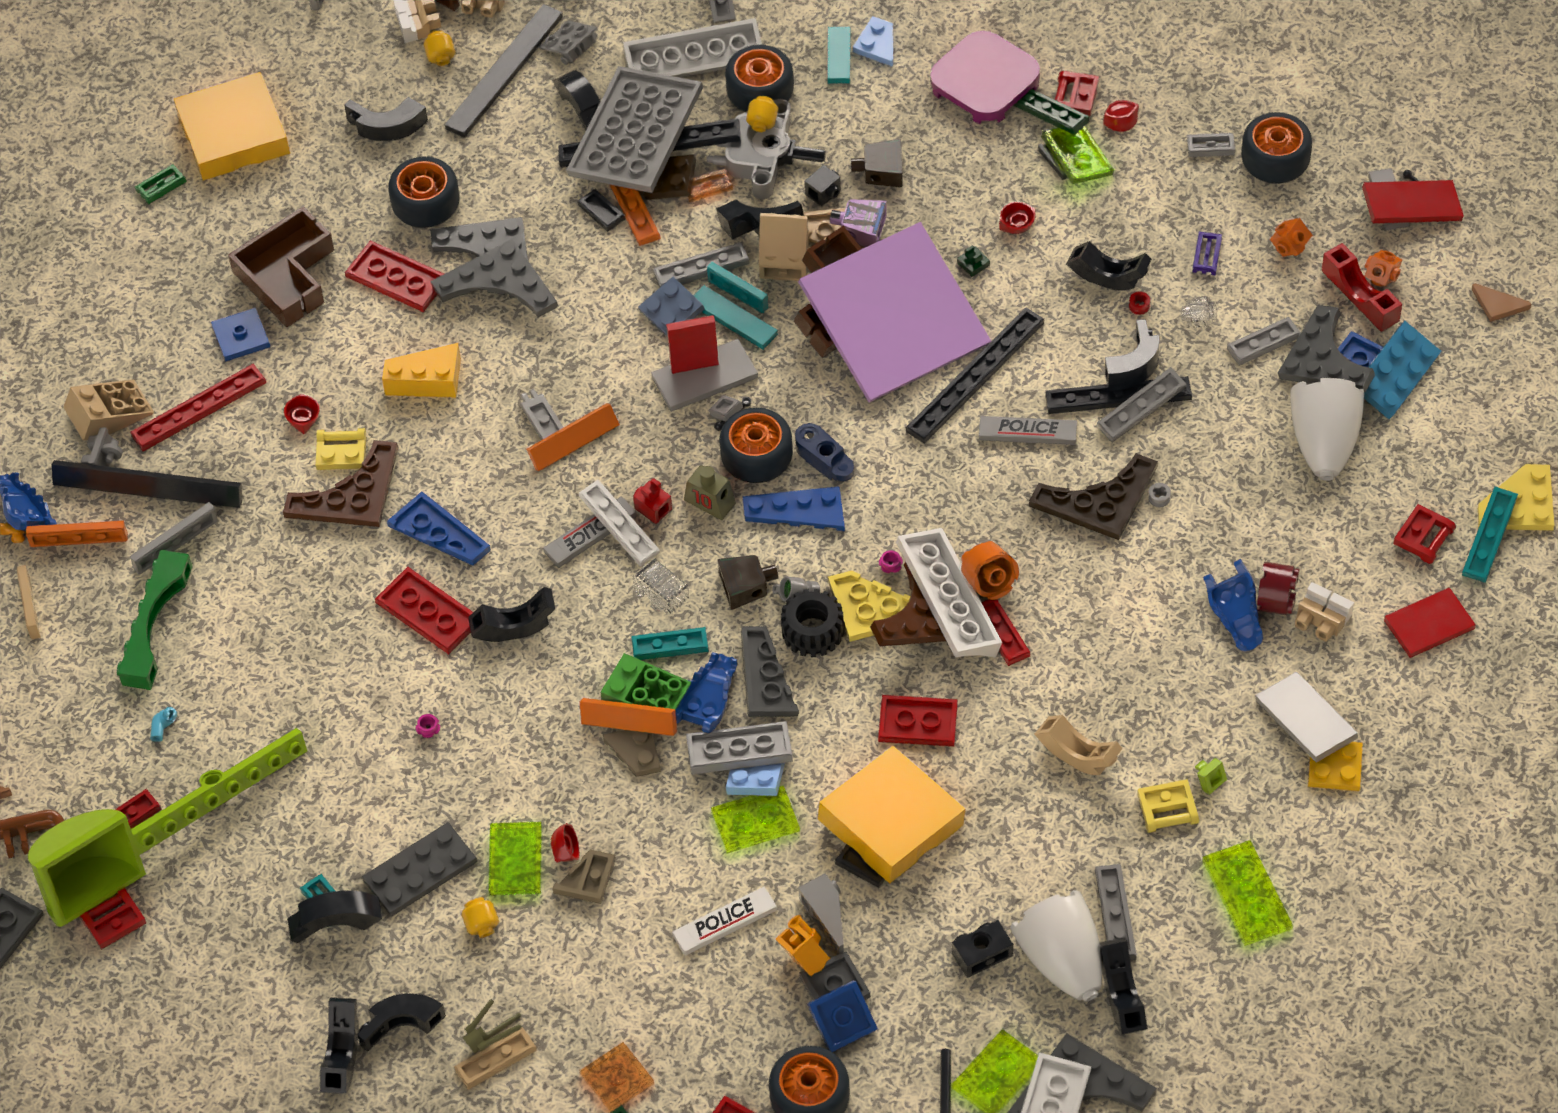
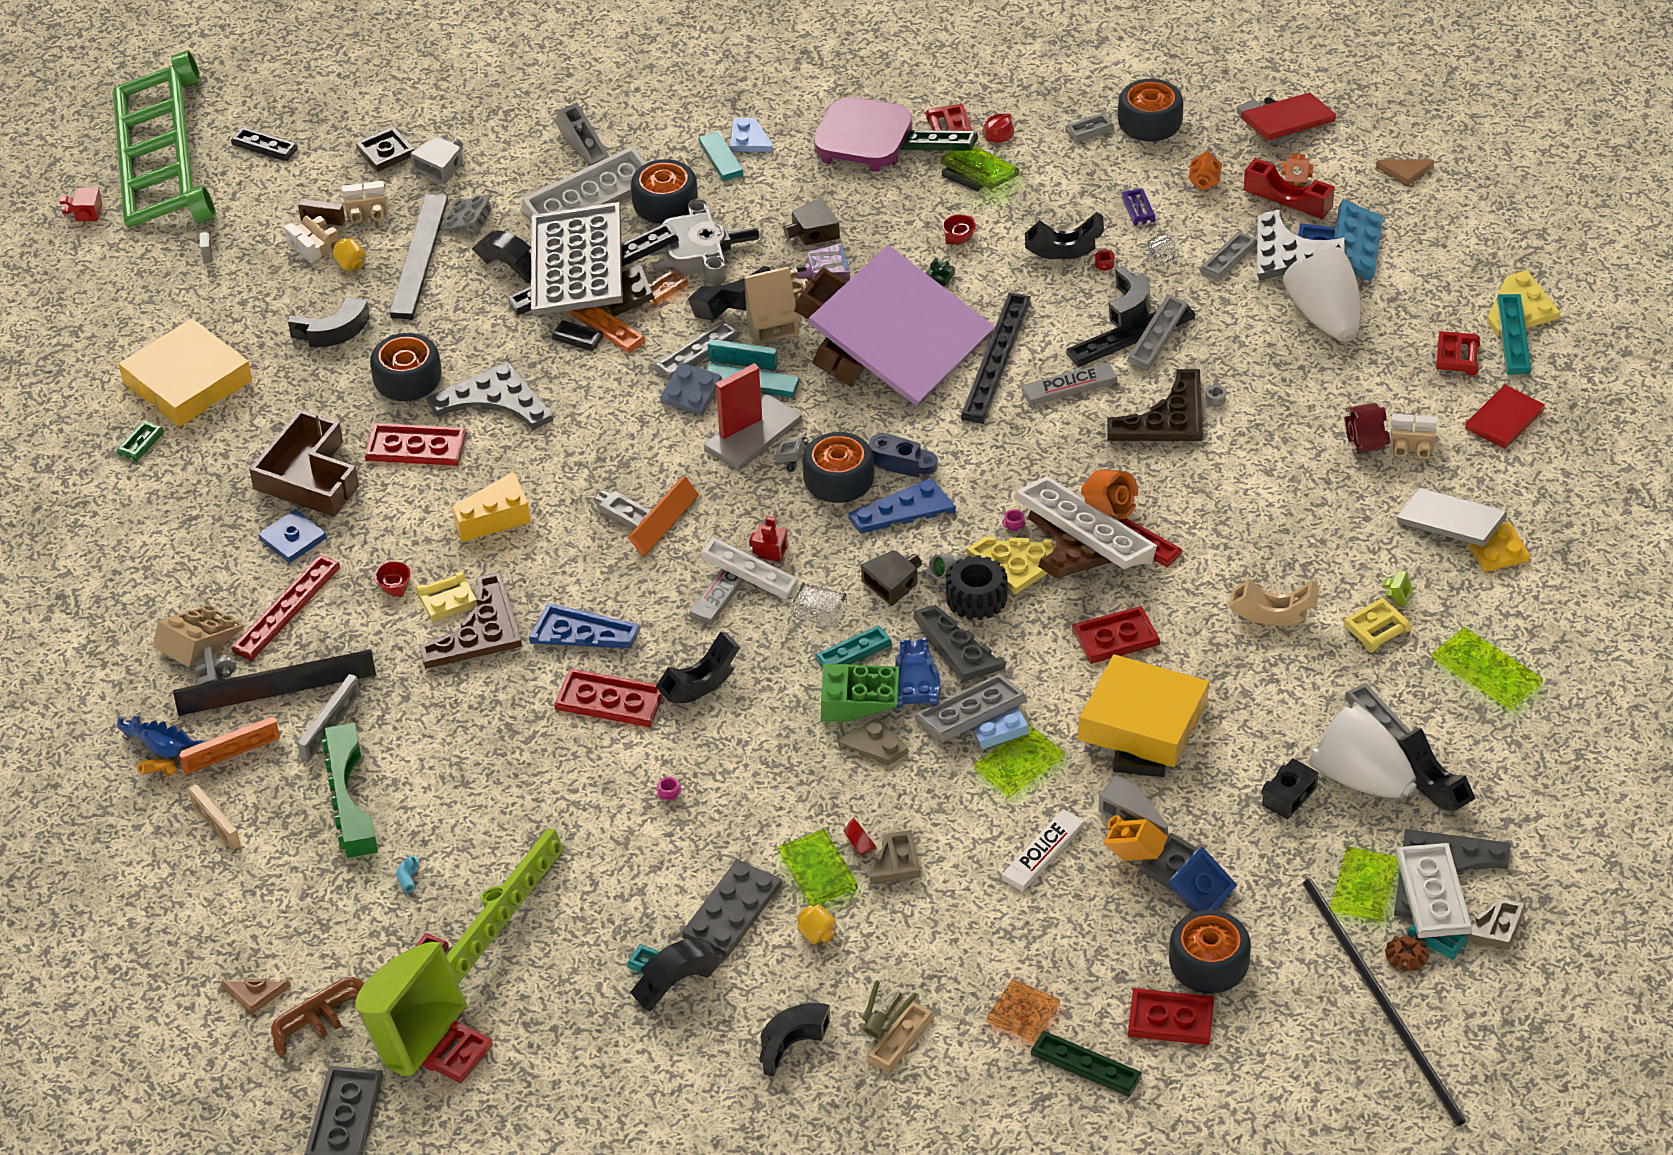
camera: 25 degrees left, 10 degrees down
(342, 1044) = (748, 1073): black arch -> none
(499, 272) = (519, 406): dark grey plate -> none
(628, 716) = (857, 714): orange tile -> none
(710, 492) = (819, 516): olive torso -> none
(762, 113) = (688, 211): yellow head -> none
(823, 185) = (771, 253): black brick -> none
(1236, 606) = (1339, 454): blue animal -> none

